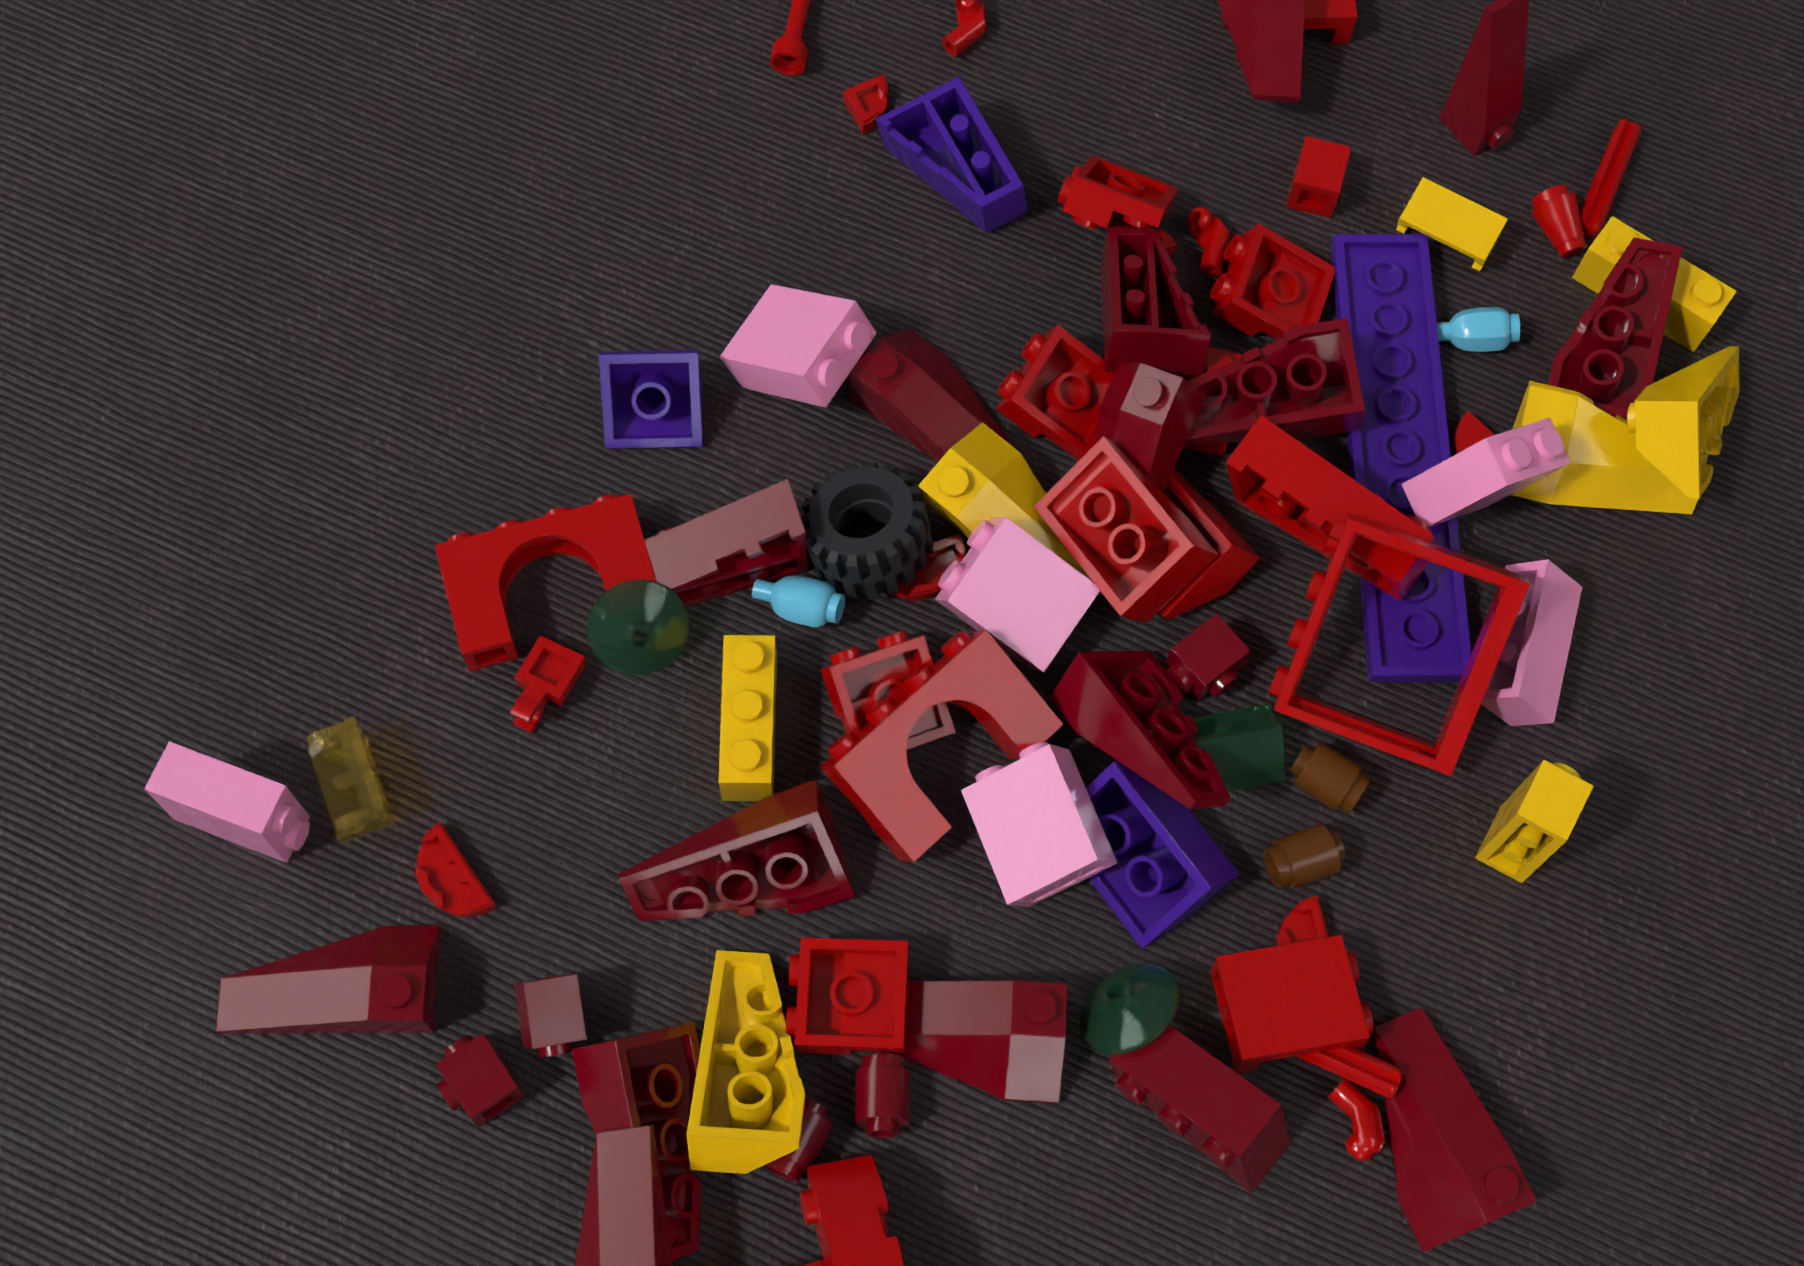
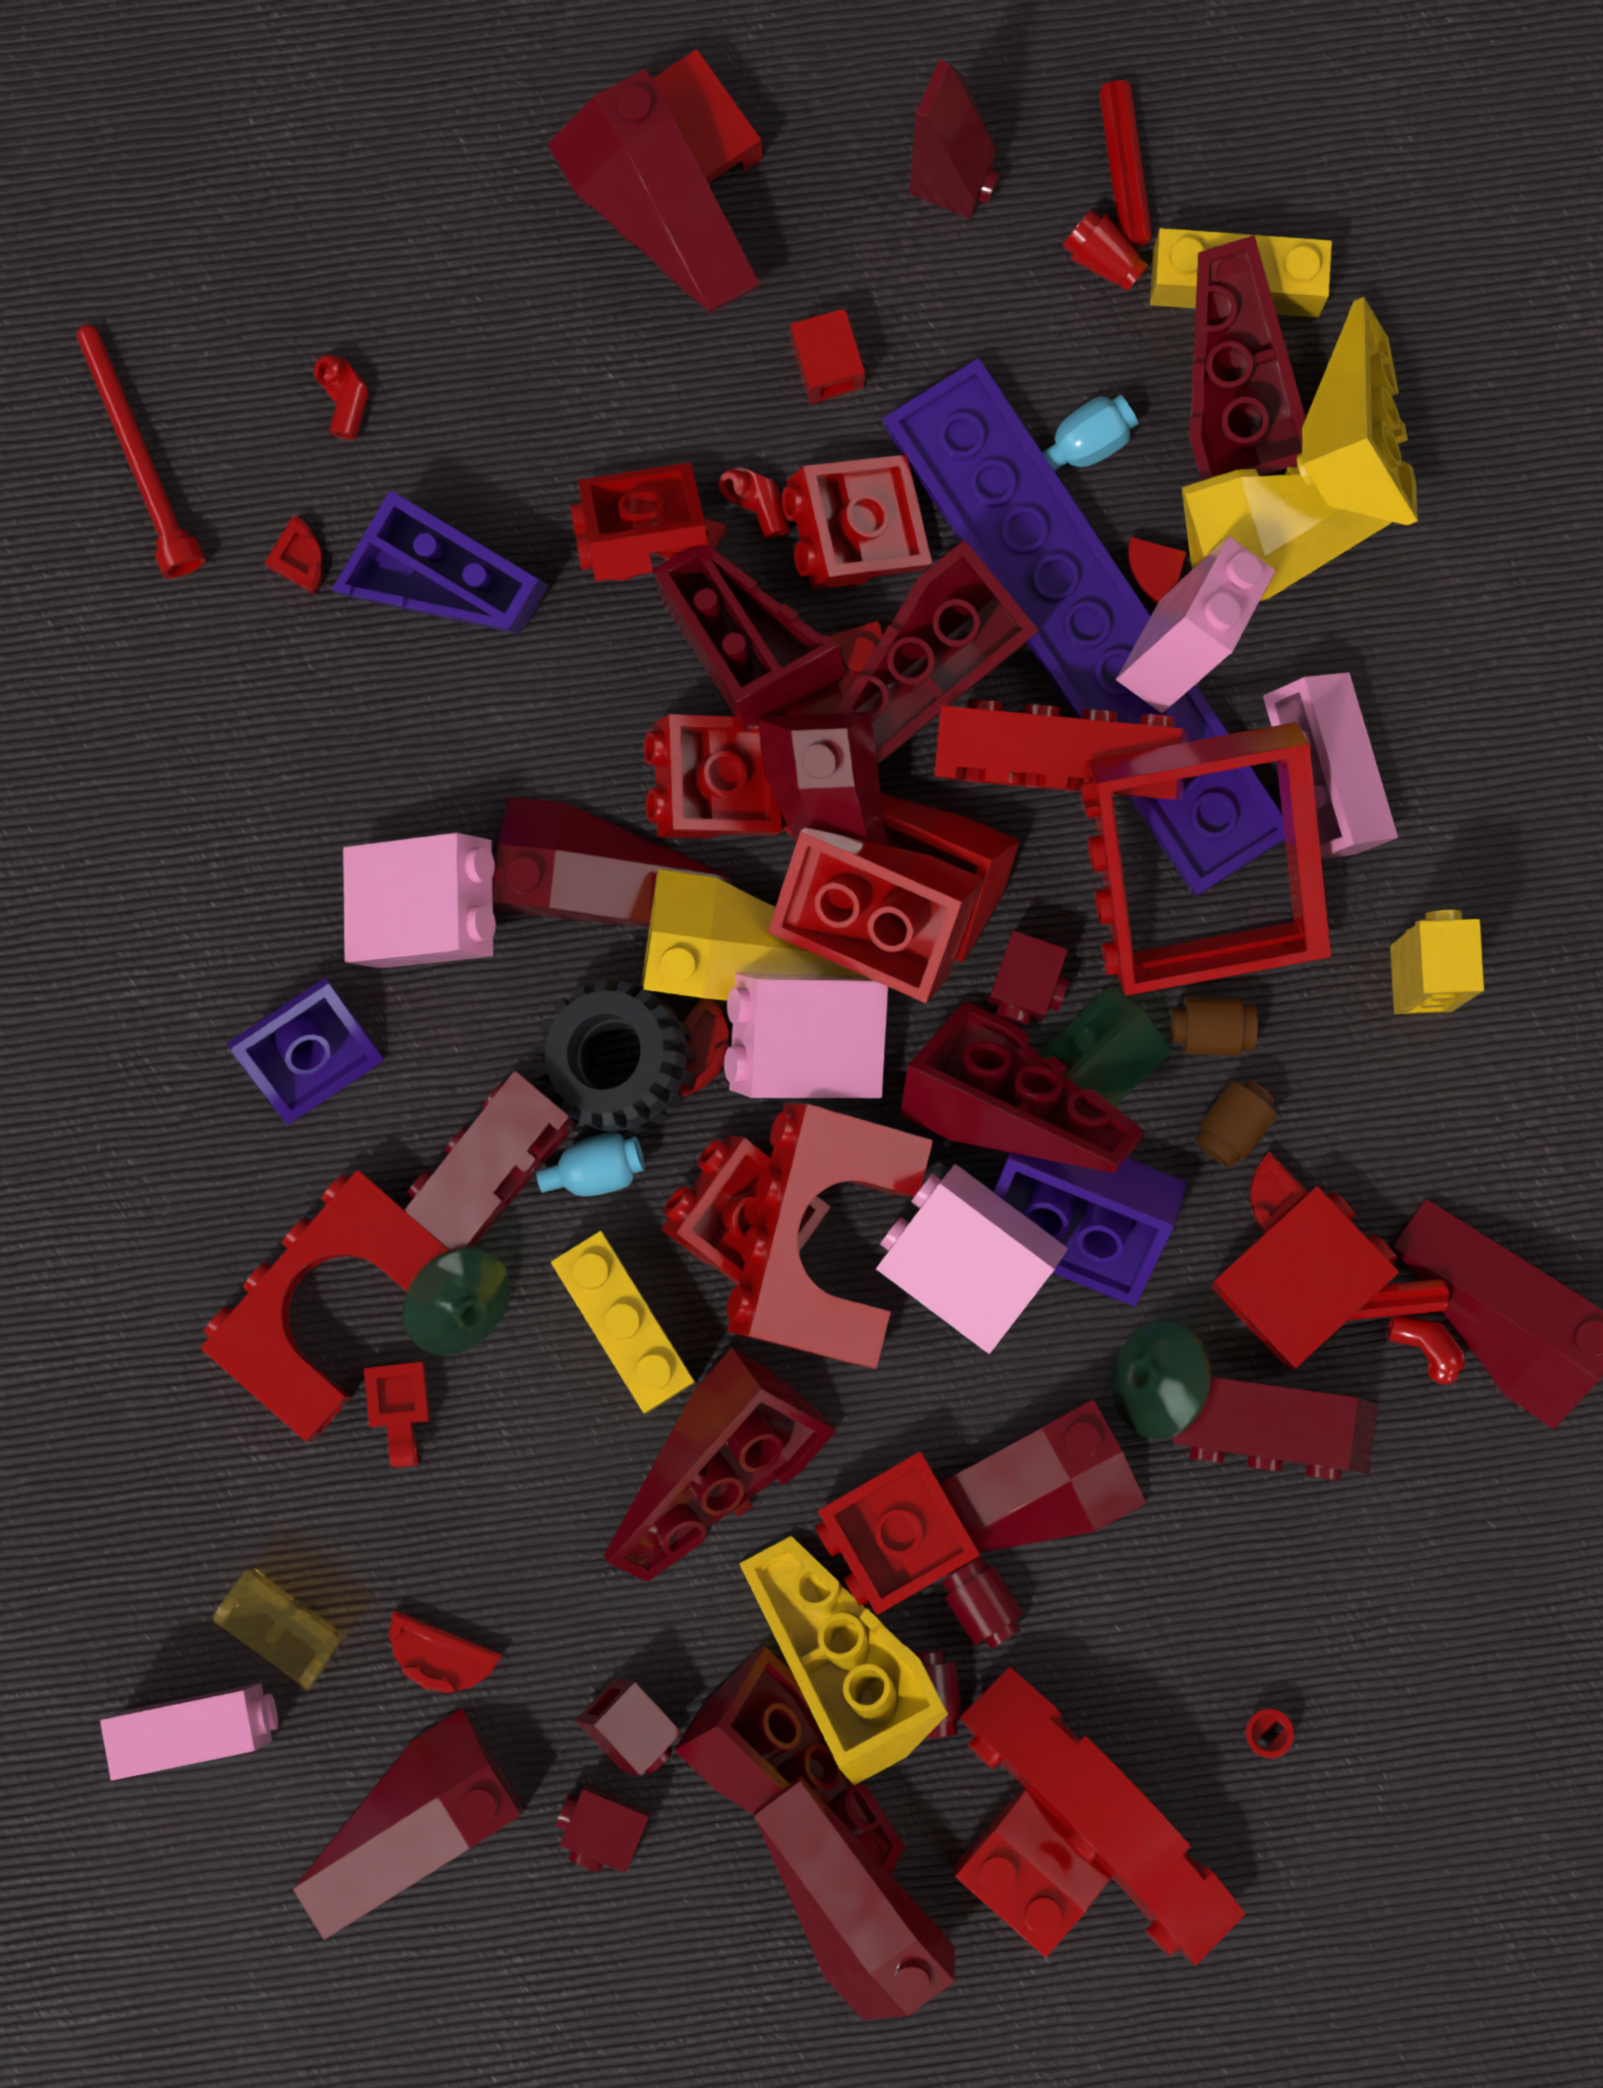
camera: 30 degrees left, 15 degrees up
(1452, 221) = (996, 329): yellow hinge -> none

